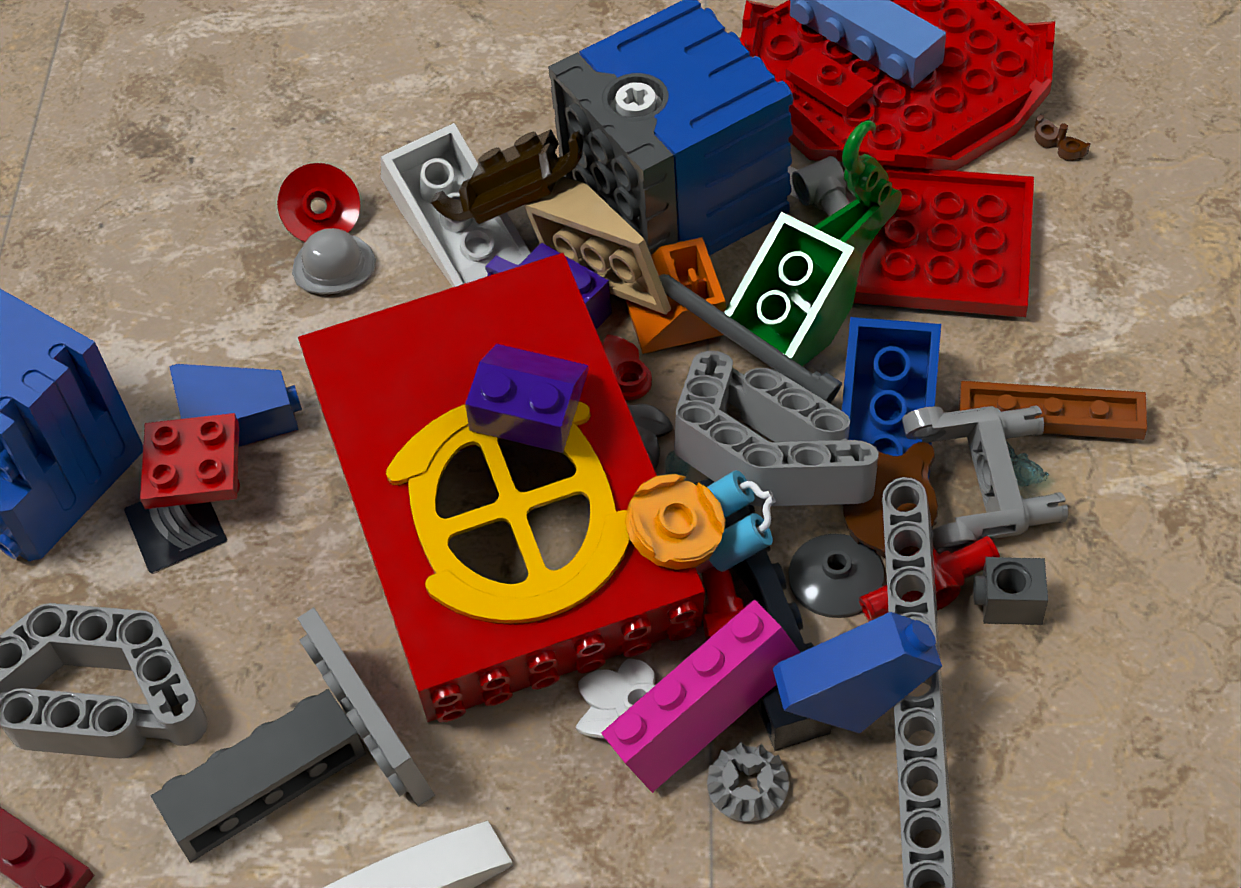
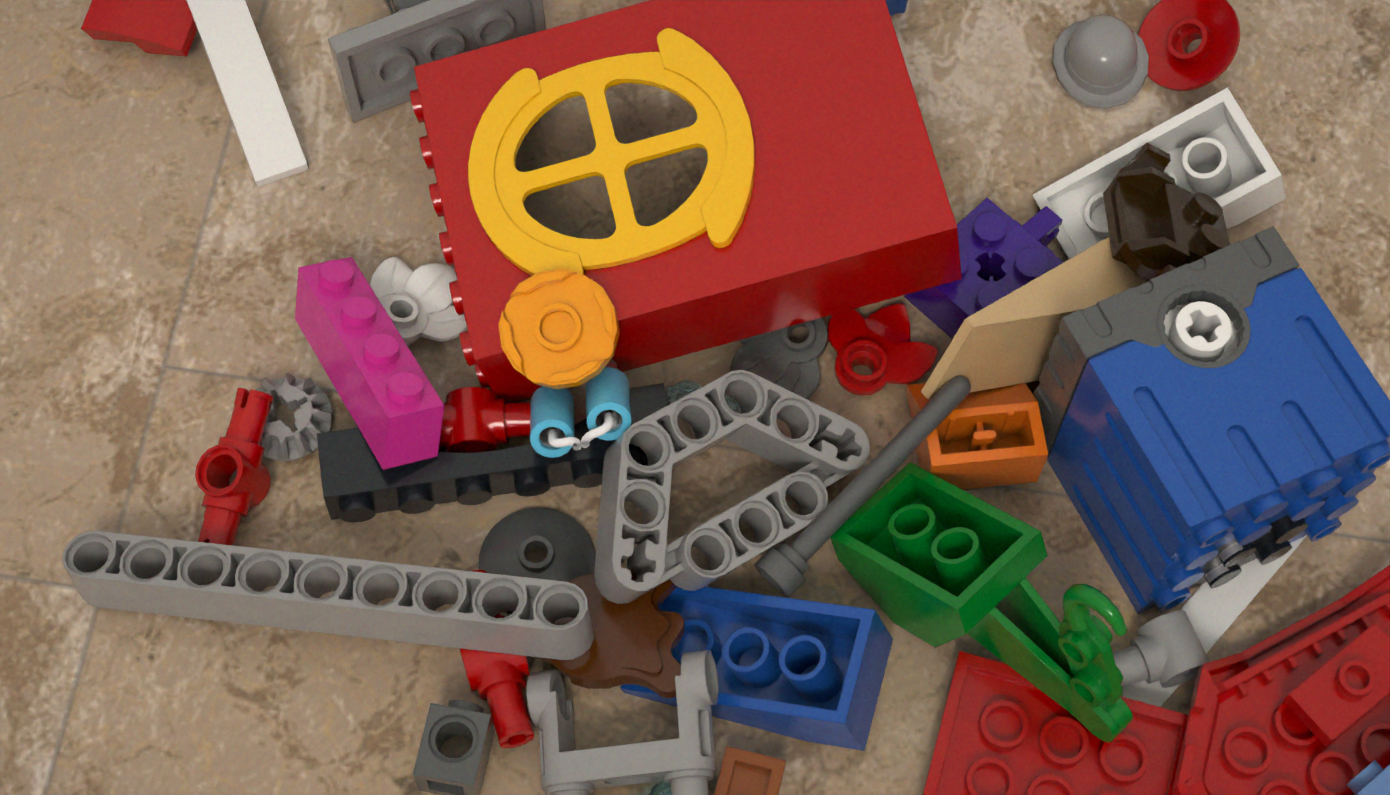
camera: 90 degrees right, 10 degrees up
(525, 397) = (734, 162): dark purple slope -> none
(795, 797) = (241, 451): none -> red pin
(859, 672) = (328, 501): blue slope -> none

